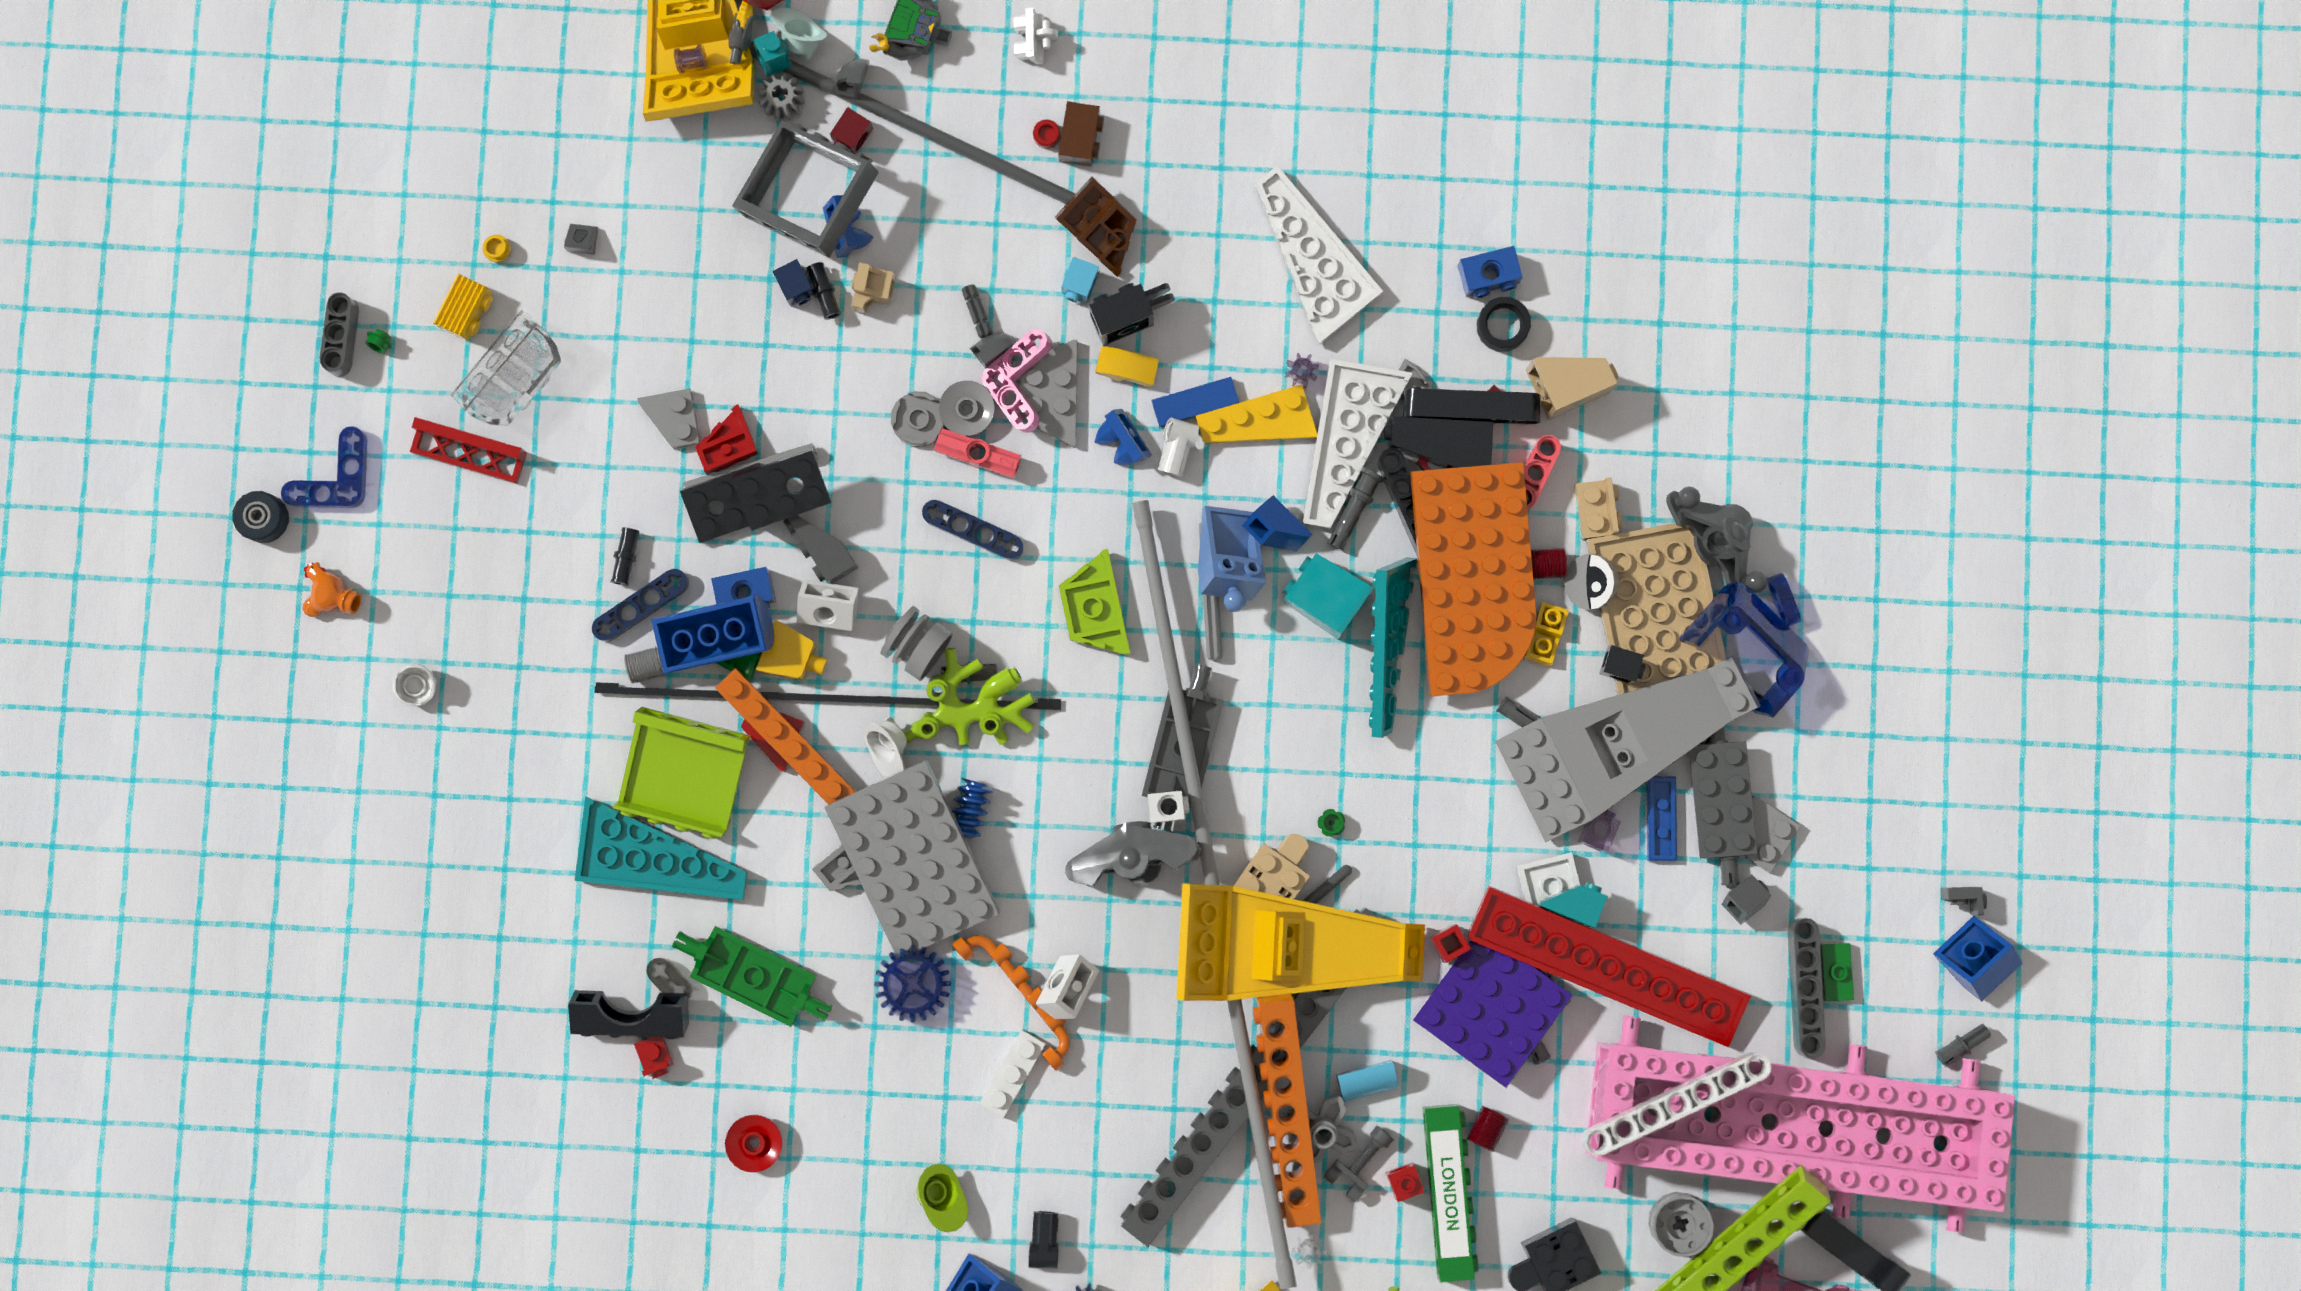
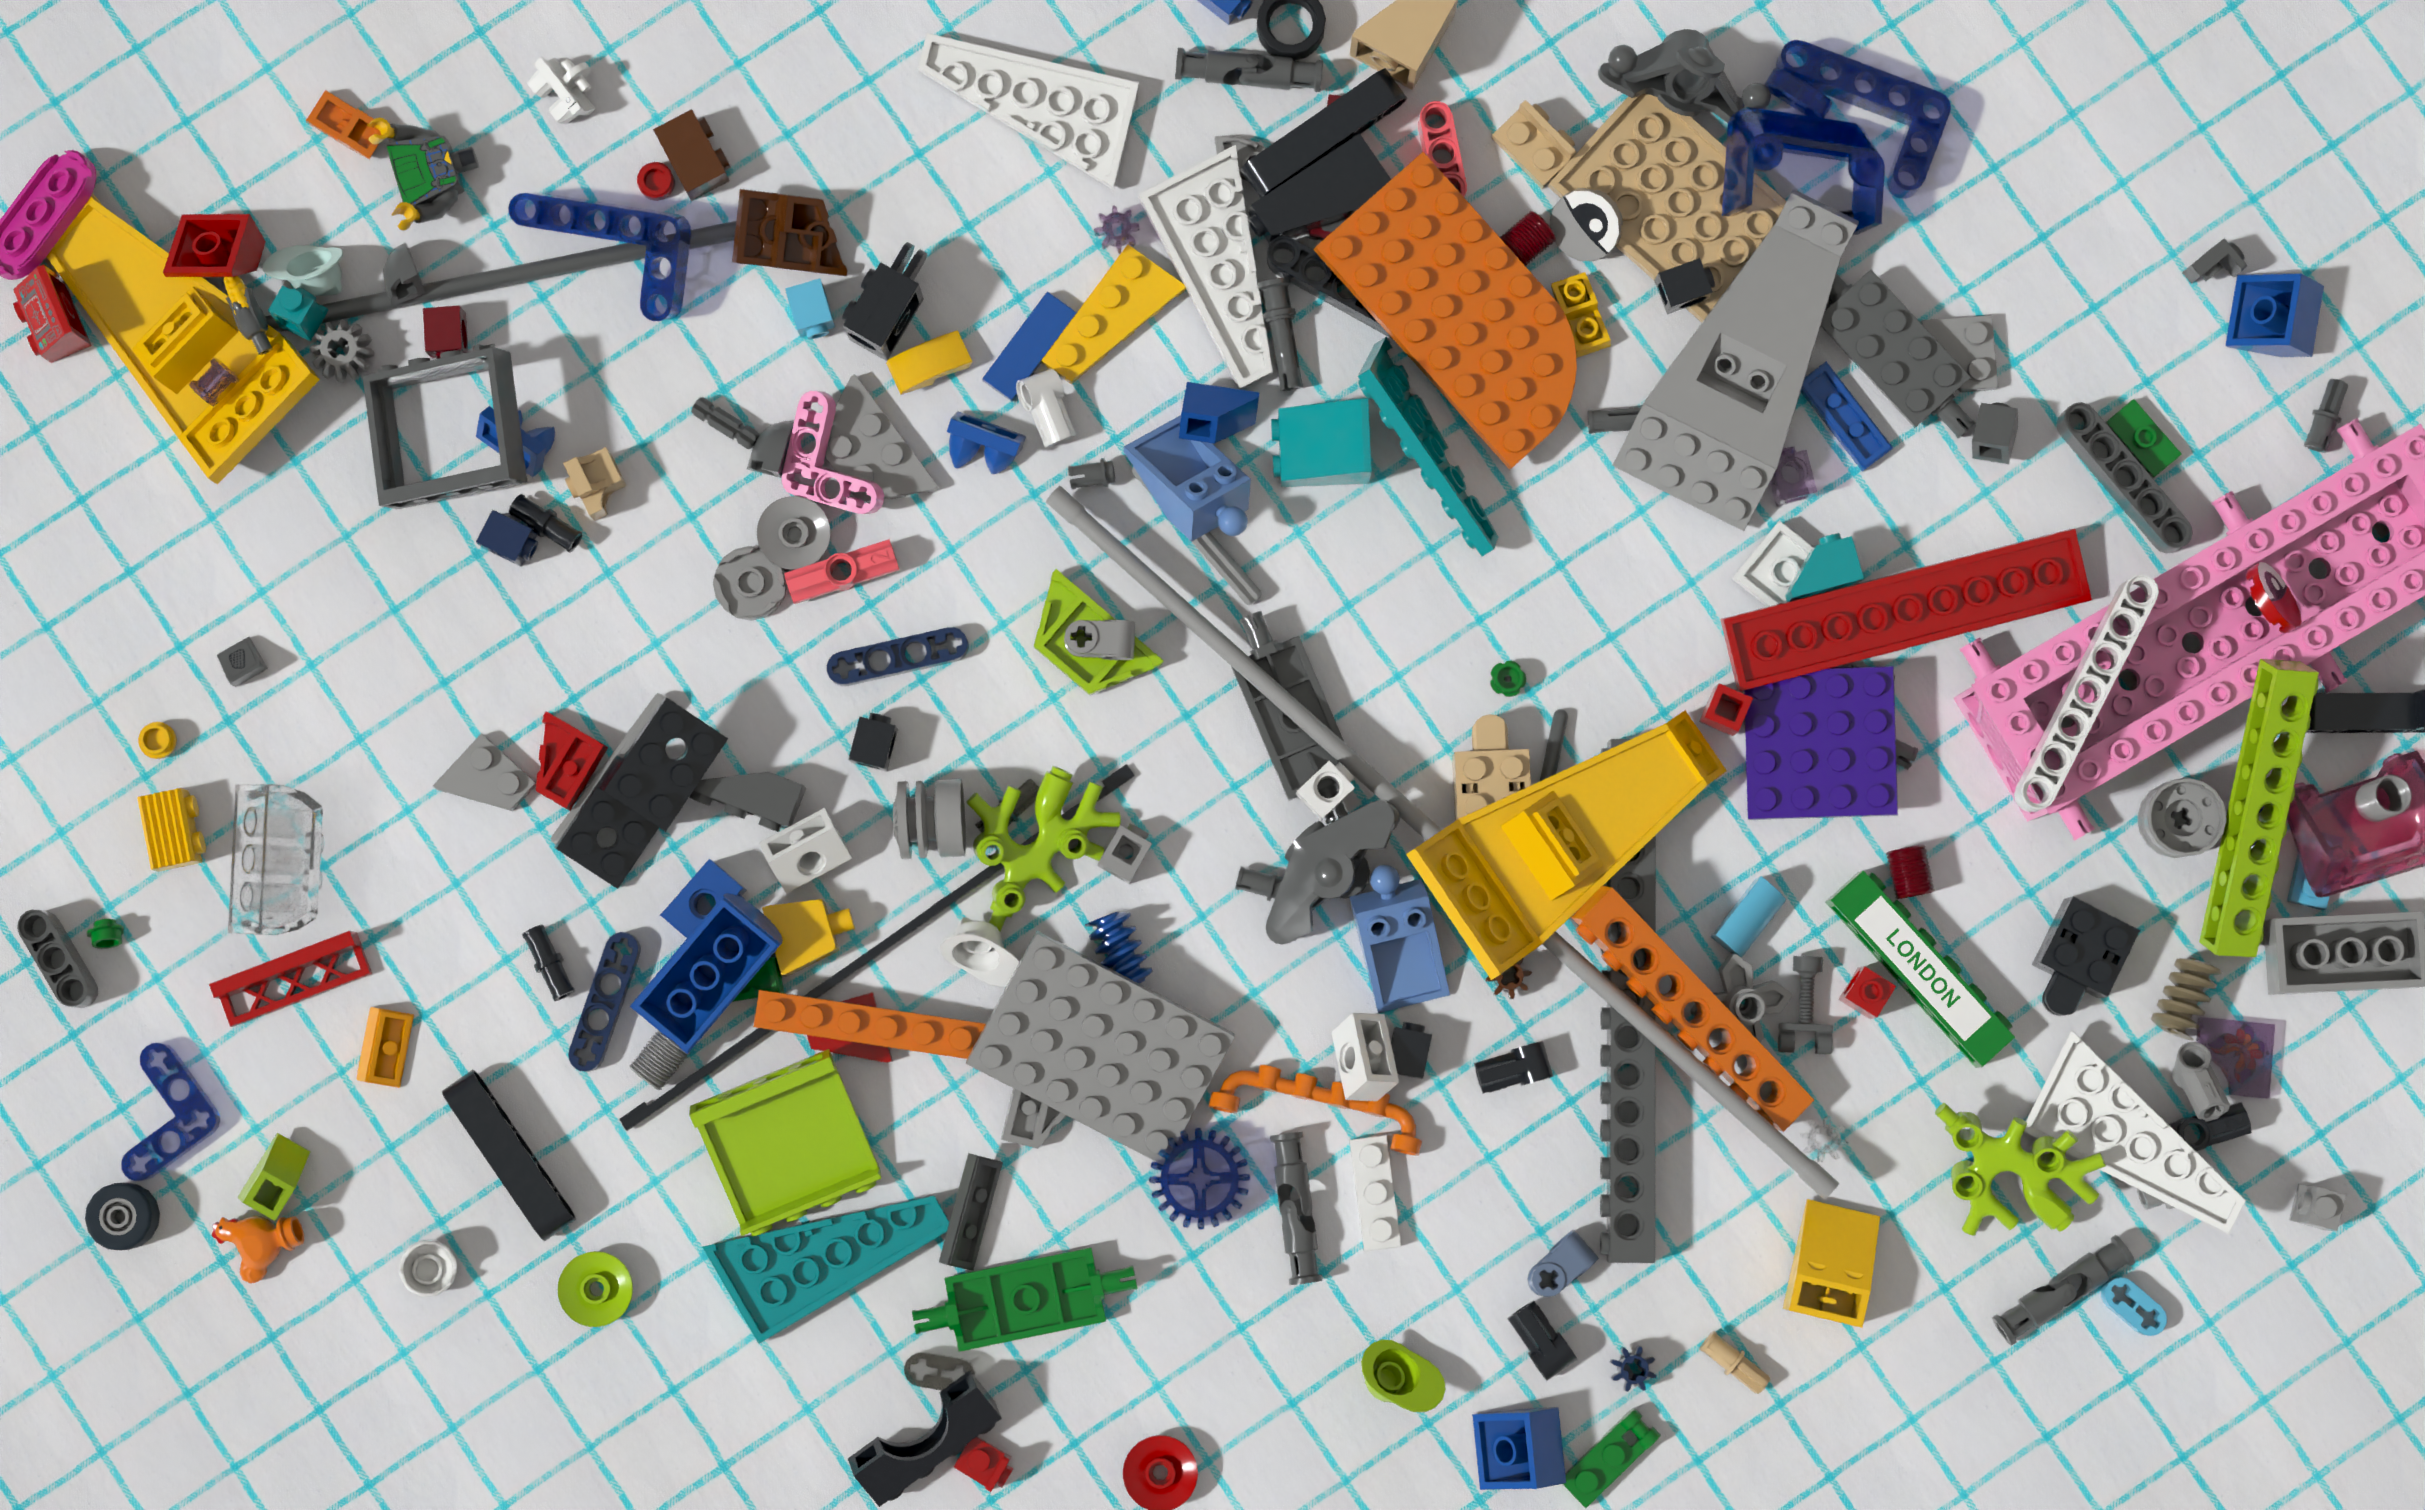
camera: 40 degrees left, 0 degrees up
(366, 562) = (275, 1177): none -> lime slope
(489, 772) = (576, 1293): none -> lime dish
(490, 533) = (385, 1047): none -> light orange slope
(513, 654) = (508, 1155): none -> black beam
(760, 898) = (970, 1212): none -> dark grey tile
(918, 570) = (873, 742): none -> black brick
(954, 1050) = (1297, 1218): none -> dark grey piece
(999, 145) = (617, 229): none -> clear blue beam
(1007, 752) = (1114, 863): none -> light grey brick
(1085, 831) = (1258, 882): none -> dark grey pin
(1097, 1204) = (1567, 1262): none -> sand blue piece
(1099, 1003) = (1410, 1049): none -> black brick
(1105, 616) = (1109, 639): none -> light grey piece
(1142, 932) = (1399, 941): none -> medium blue slope
(1160, 1065) = (1521, 1066): none -> black piece
(1175, 508) = (1094, 473): none -> dark grey pin
(1189, 1011) = (1519, 975): none -> reddish brown gear
(1442, 321) = (1222, 66): none -> dark grey piece
(1830, 642) = (1877, 102): none -> clear blue beam
(1839, 1133) = (2274, 597): none -> red tile

